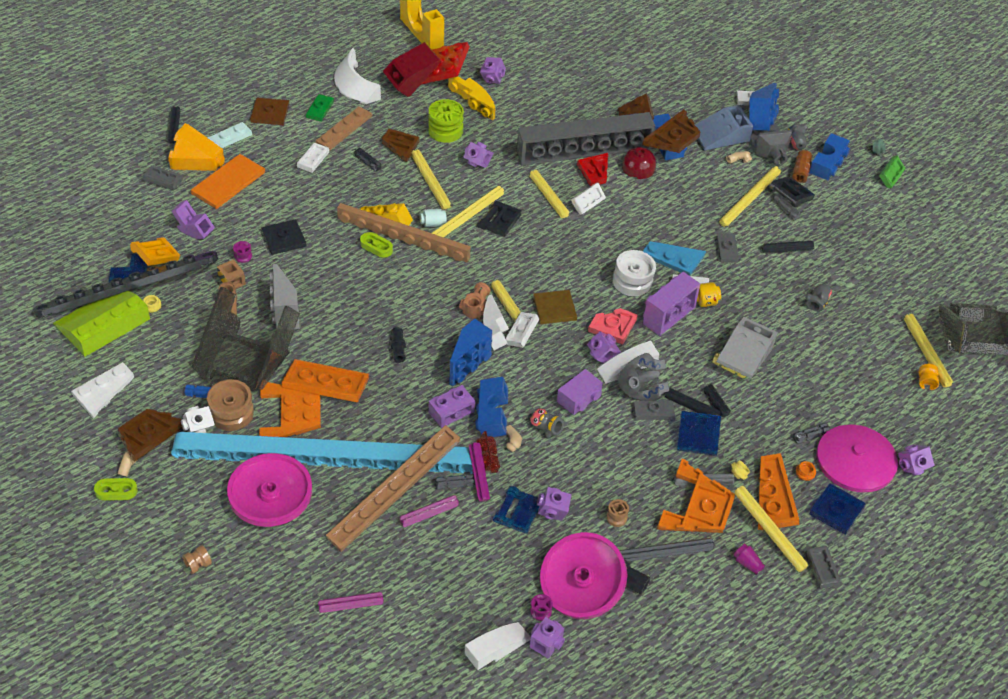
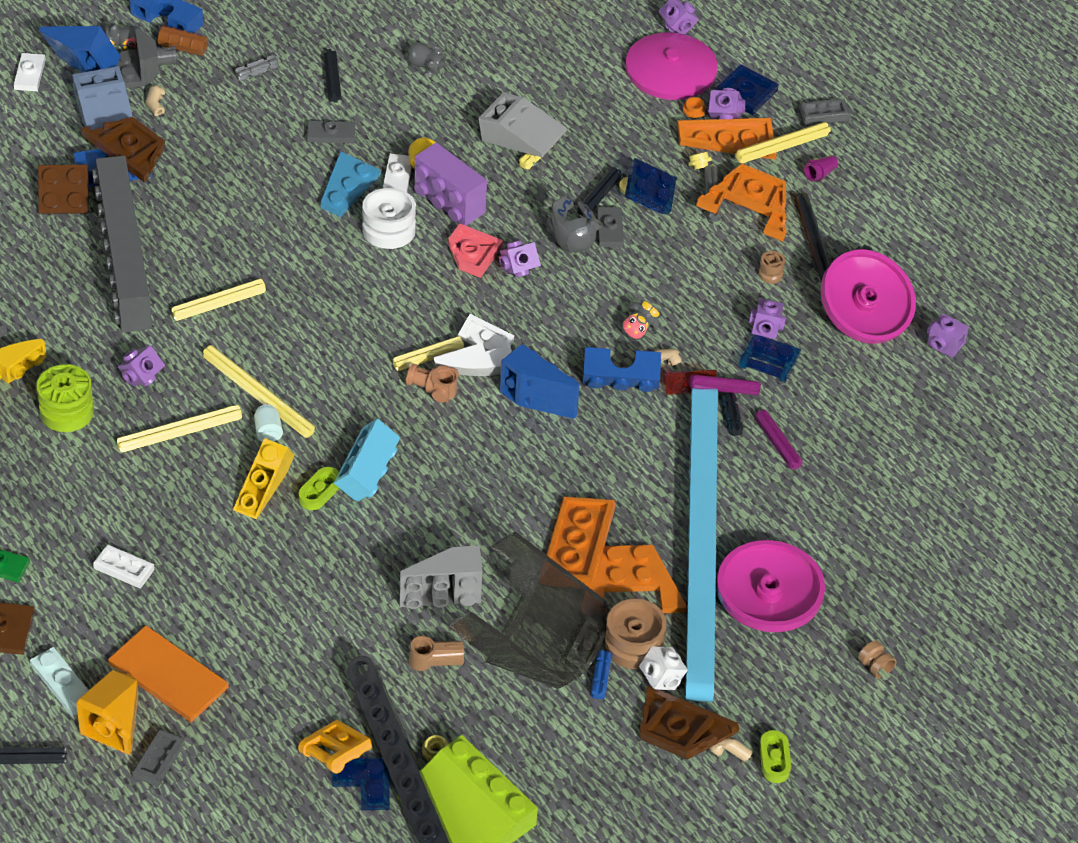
camera: 90 degrees left, 0 degrees up
(101, 389) = (599, 793): white wing -> none
(190, 223) = (274, 703): medium lavender brick -> none
(232, 273) = (385, 650): medium nougat brick -> none
(242, 251) = (337, 638): magenta wheel -> none
(283, 237) = (296, 598): black plate -> none
(344, 128) = (54, 532): medium nougat plate -> none
(350, 602) = (915, 512): magenta axle -> none
(368, 159) = (130, 501): black axle -> none
(392, 488) = (761, 461): medium nougat plate -> none
(396, 264) = (367, 460): none -> medium azure brick
(398, 345) = (512, 465): black pin -> none
(400, 143) = (100, 459): reddish brown wing -> none
(404, 232) = (296, 462): medium nougat plate -> none
(451, 406) = (619, 410): medium lavender brick -> none
(496, 644) = (960, 381): white slope -> none
(503, 222) = (273, 347): black plate -> none
(541, 602) = (901, 338): magenta wheel -> none
(555, 307) = (438, 306): pearl gold tile -> none
(579, 392) = (594, 285): medium lavender brick -> none
(588, 198) = (235, 256): white plate -> none
(594, 168) = (173, 246): red wing -> none
(610, 370) = (538, 229): white slope -> none
(639, 163) = (164, 199): dark red cylinder -> none
(717, 400) = (591, 170): black axle -> none
(749, 196) = (235, 99): light yellow axle -> none
(792, 190) = (232, 55): black plate -> none
(806, 486) = (726, 104): none -> medium lavender brick
(811, 433) = (638, 96): black axle -> none

